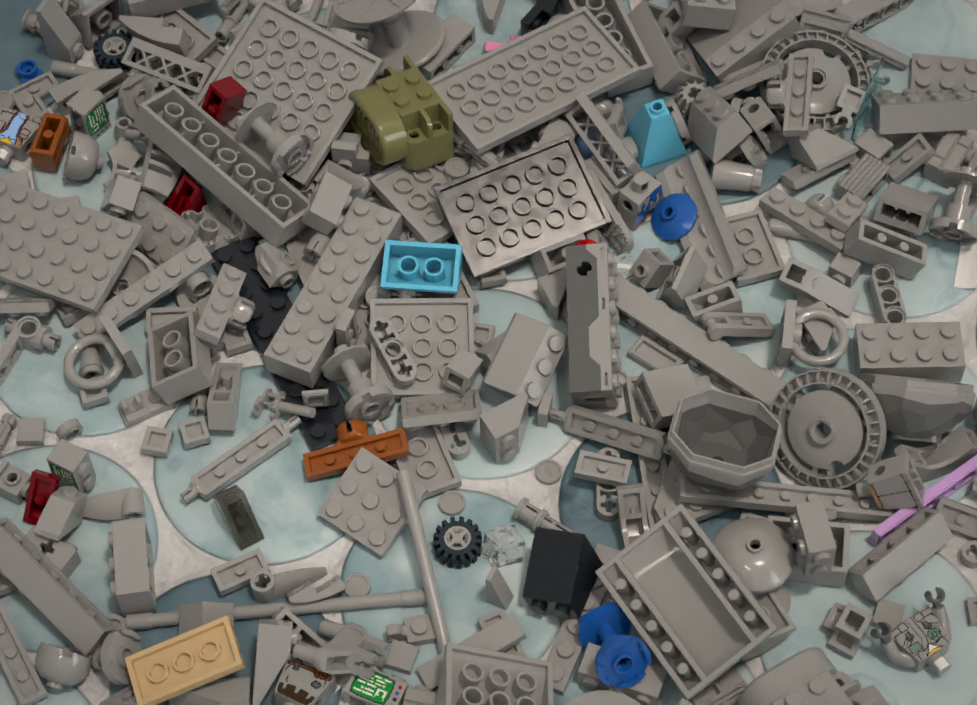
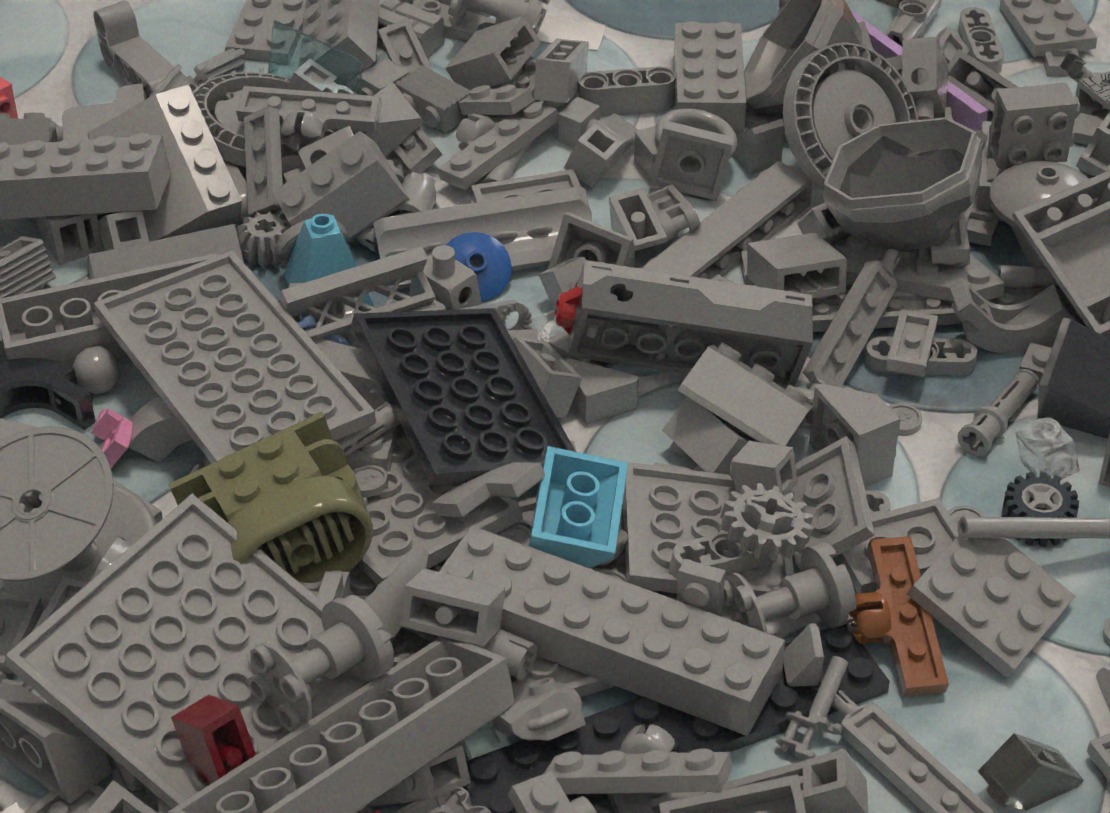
camera: 90 degrees left, 15 degrees down
(414, 367) = (766, 522): none -> light grey gear
(434, 222) = (504, 481): none -> light grey tile

